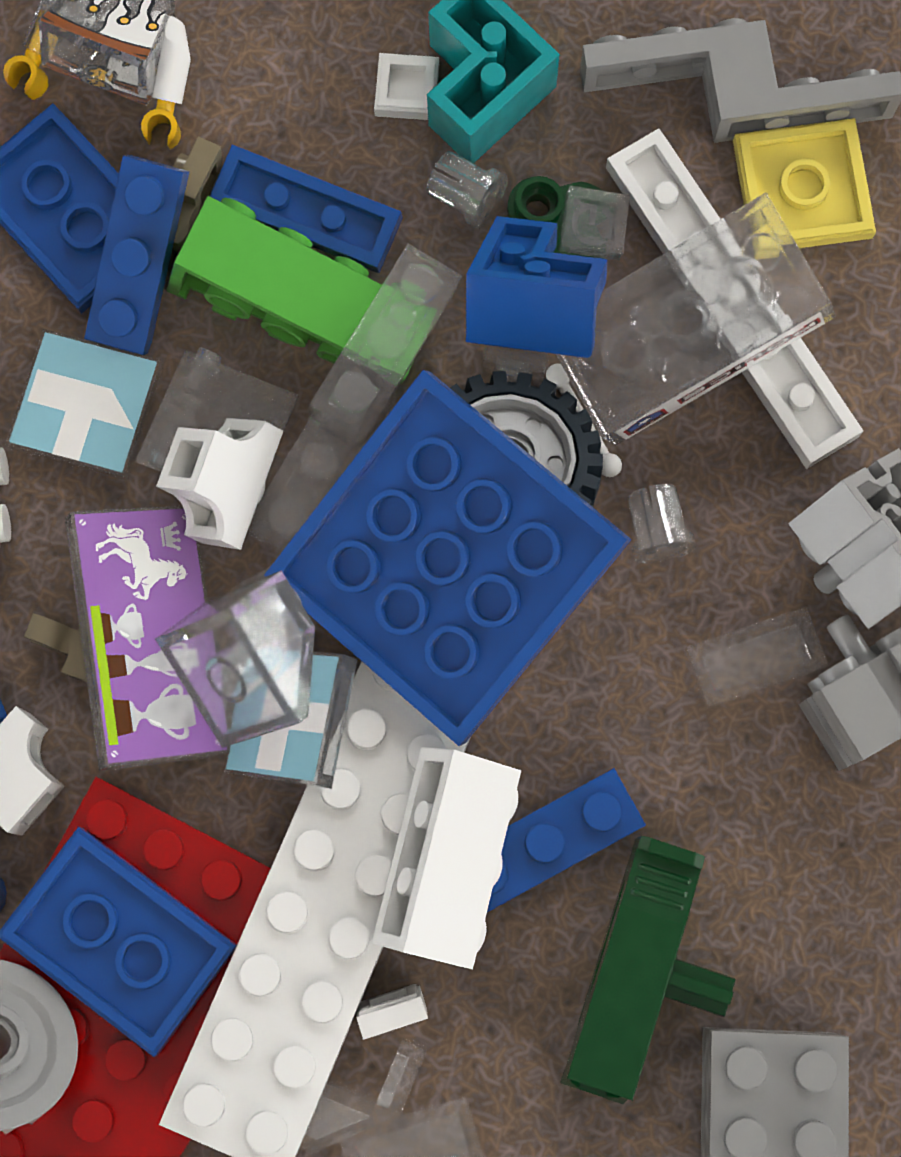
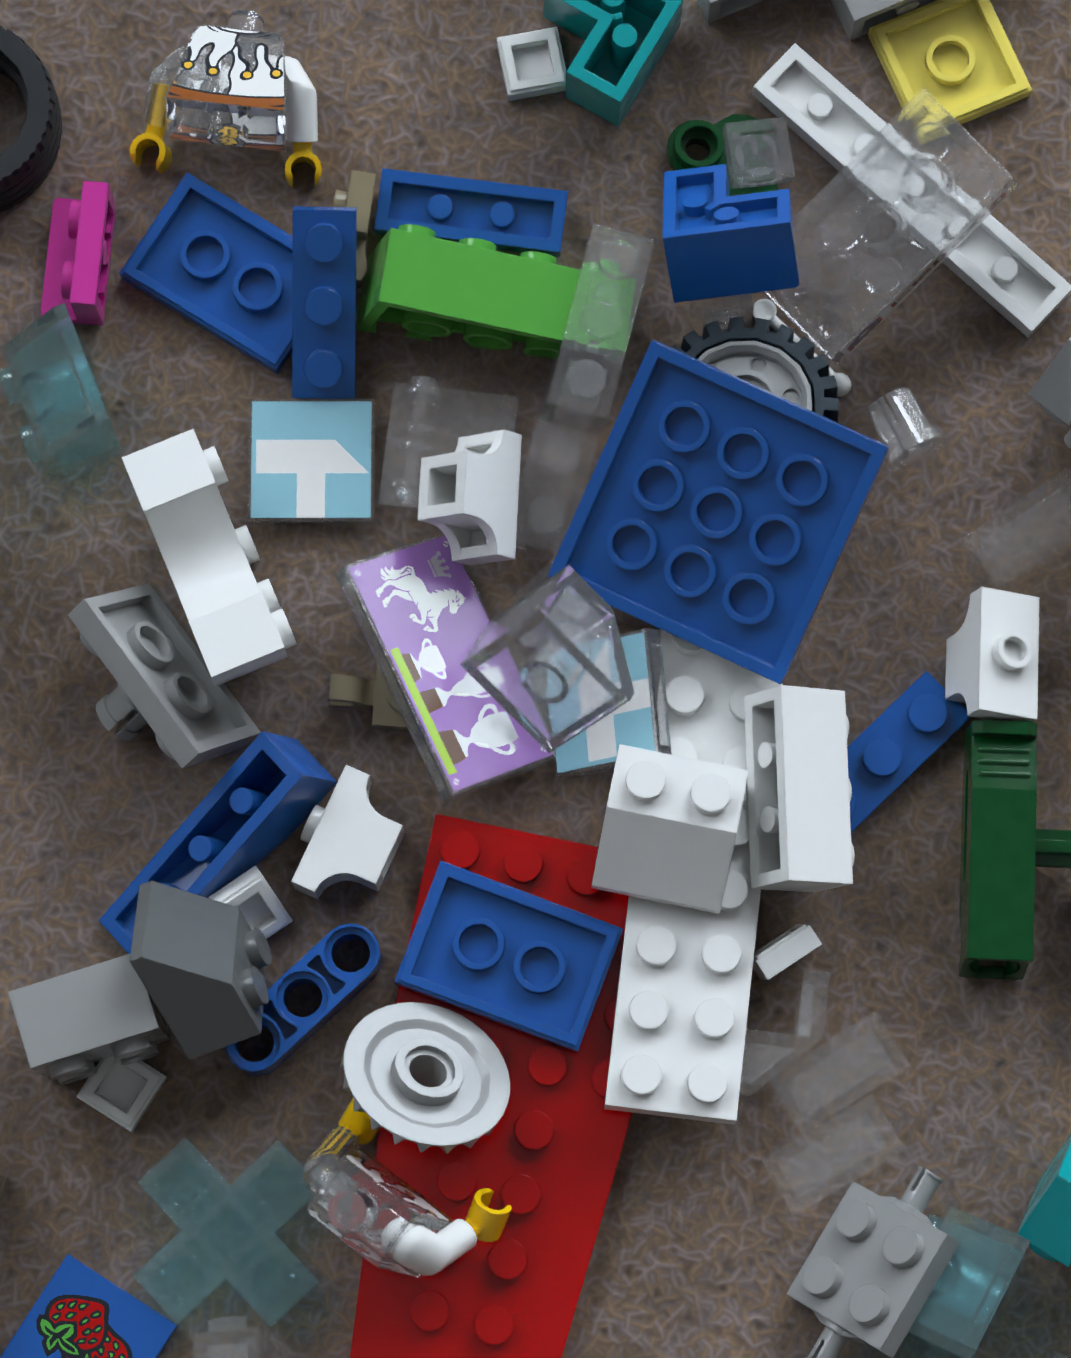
camera: 20 degrees left, 0 degrees up
(302, 862) = (669, 829): none -> white slope
(467, 188) = (632, 151): clear bush -> none
(684, 777) = (996, 657): none -> white brick

